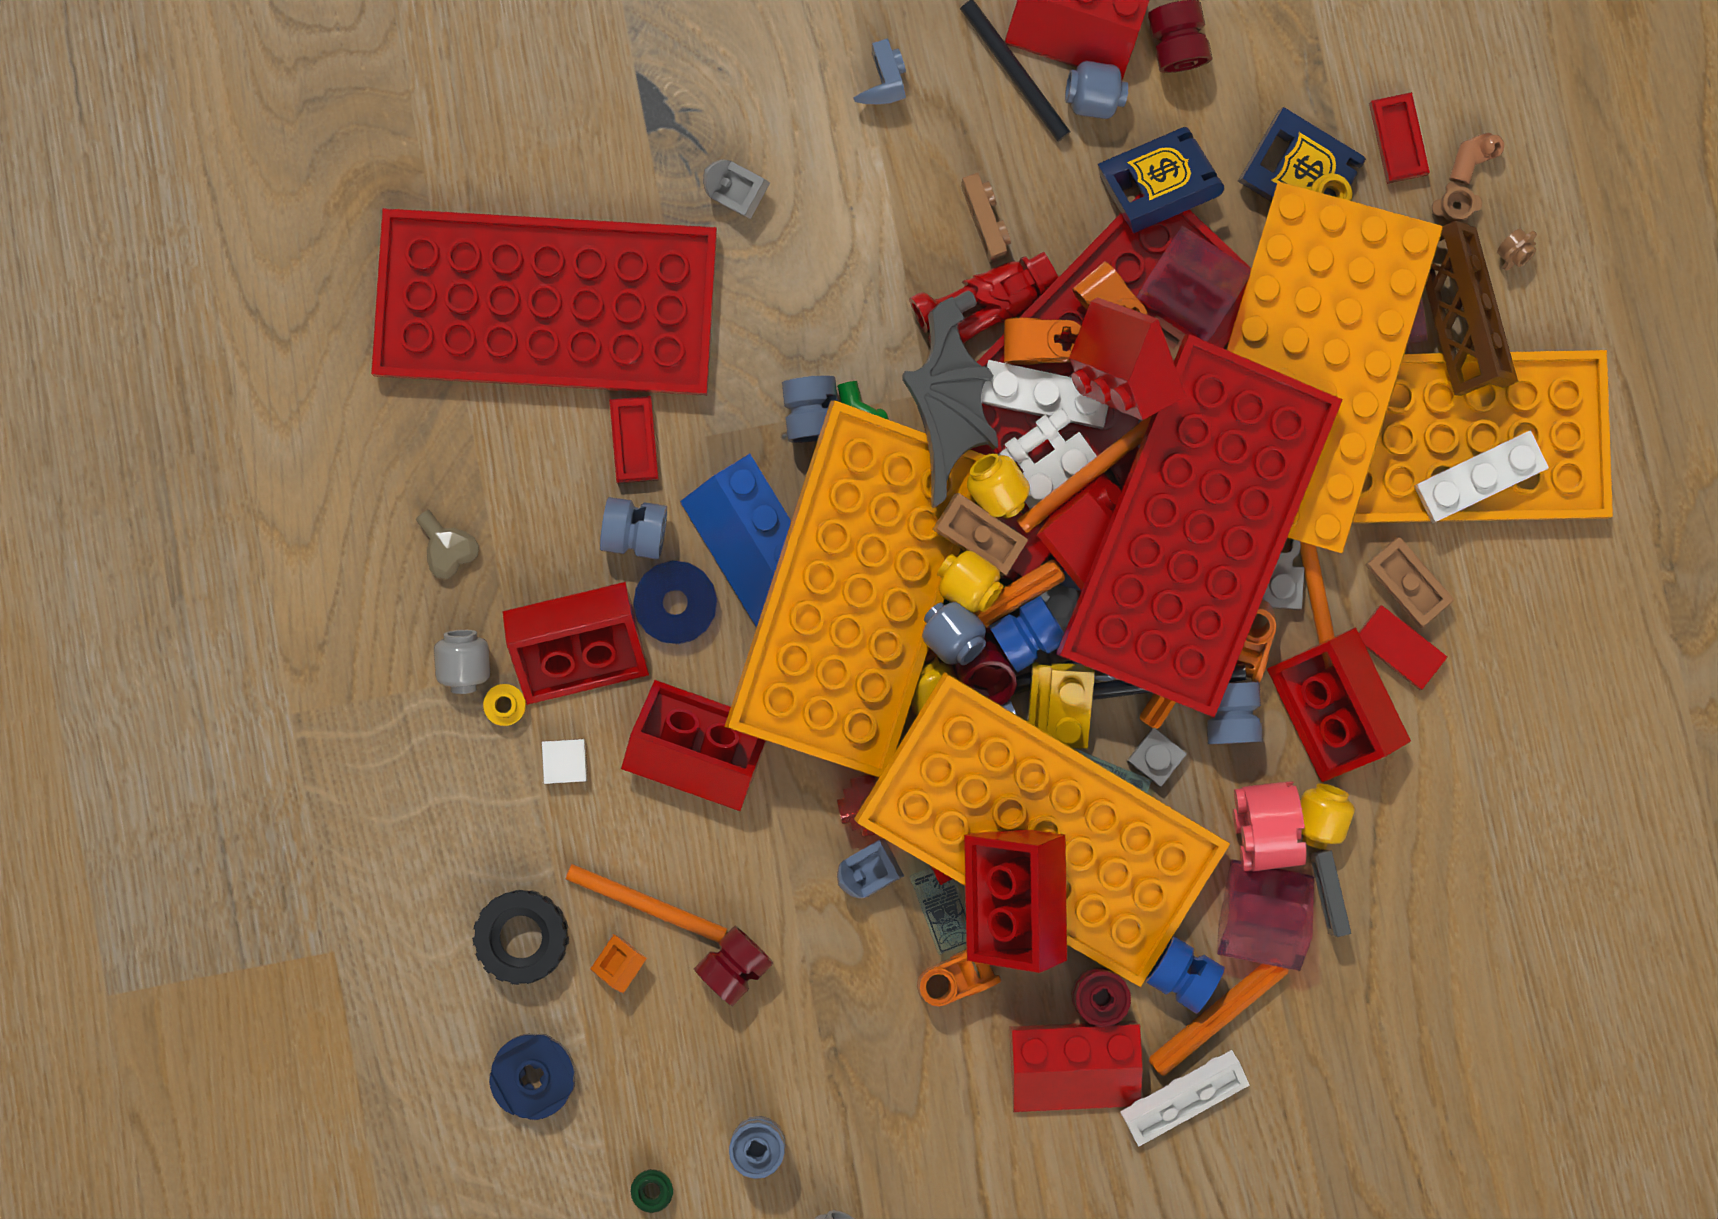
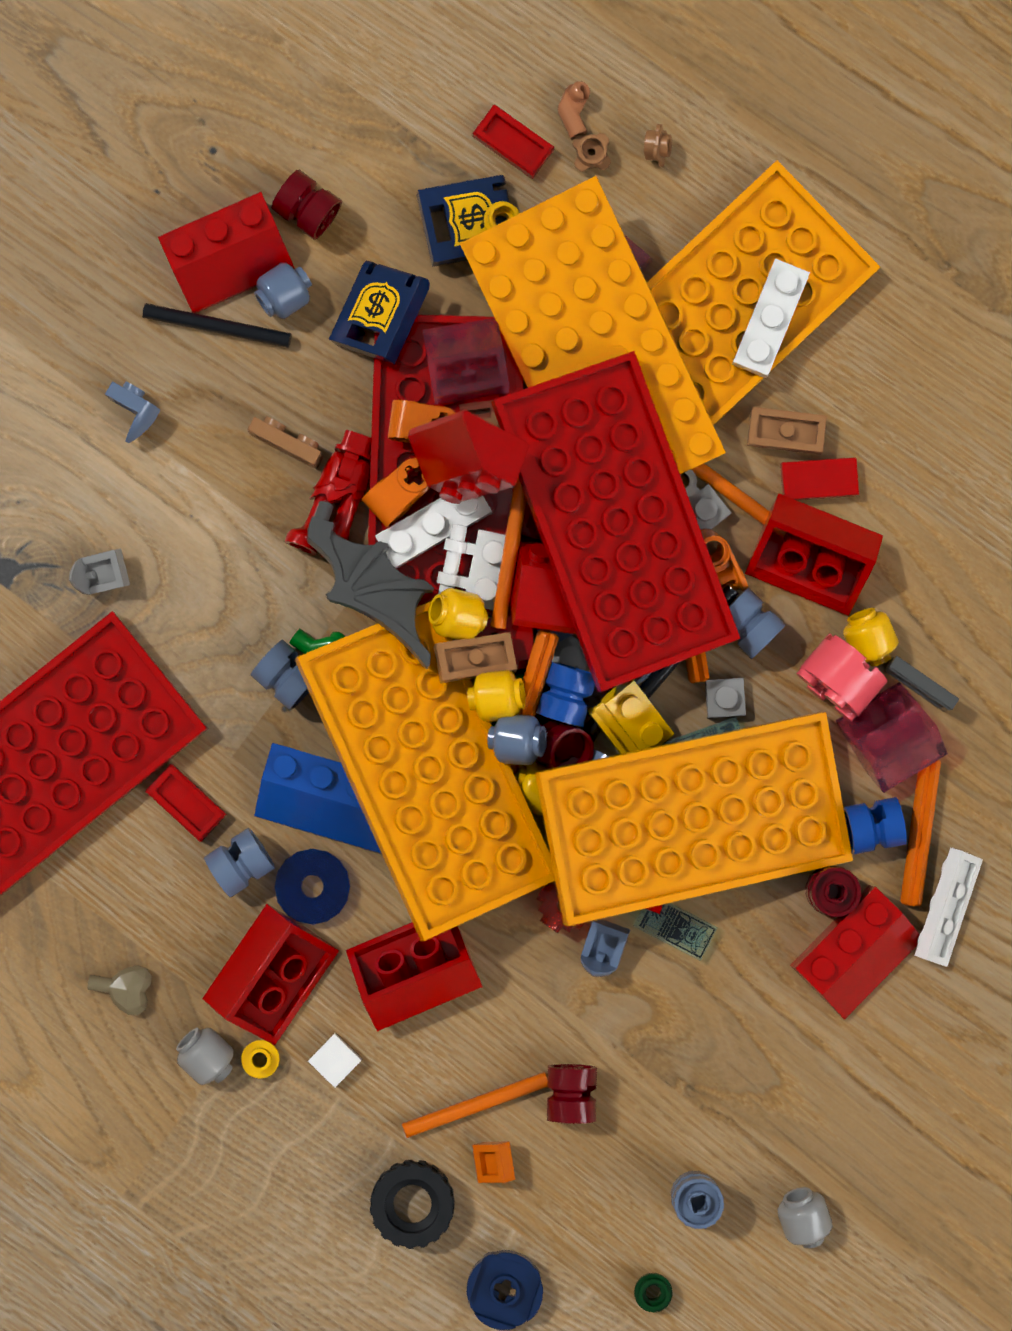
camera: 40 degrees left, 0 degrees up
(961, 979) = (727, 961): orange piece -> none
(1016, 899) = (719, 879): red slope -> none
(1480, 310) = (671, 209): reddish brown fence -> none

